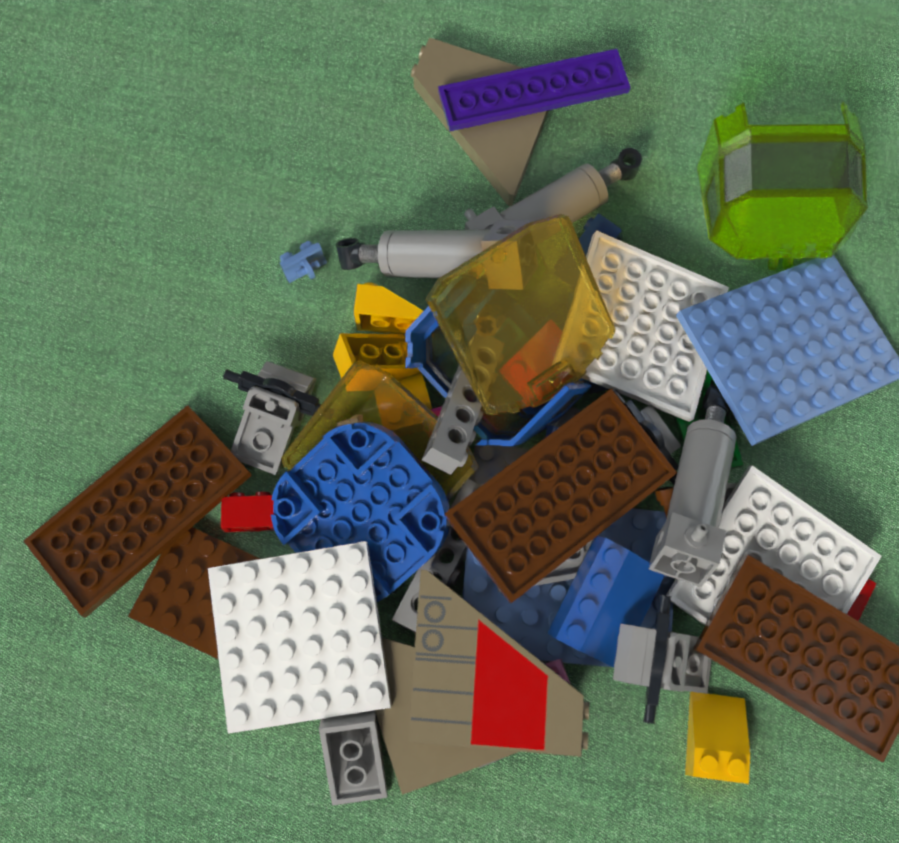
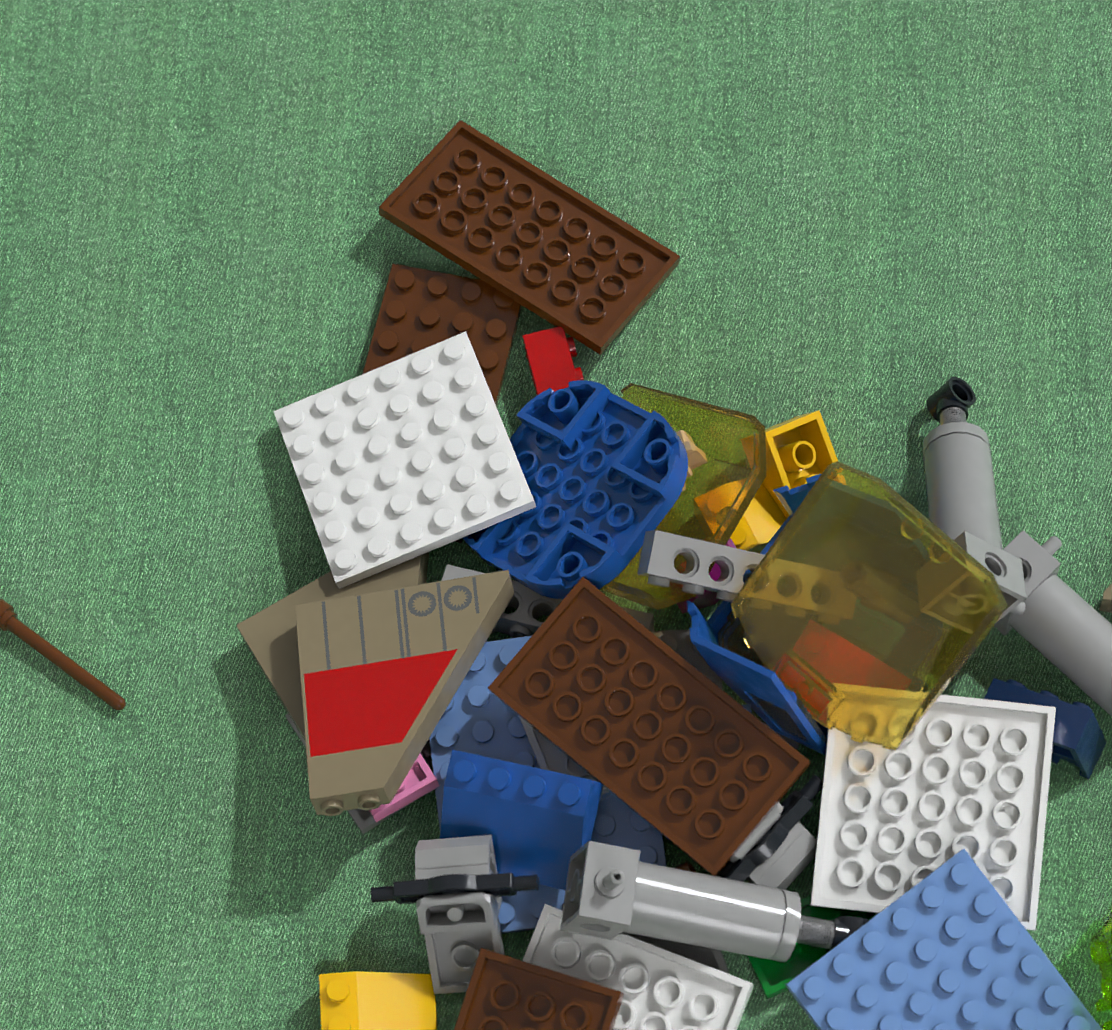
camera: 90 degrees right, 5 degrees down
(272, 410) = (699, 355): light grey piece -> none
(302, 263) = (922, 347): medium blue hips -> none
(353, 757) = (271, 562): light grey slope -> none
(382, 310) = (873, 443): yellow slope -> none

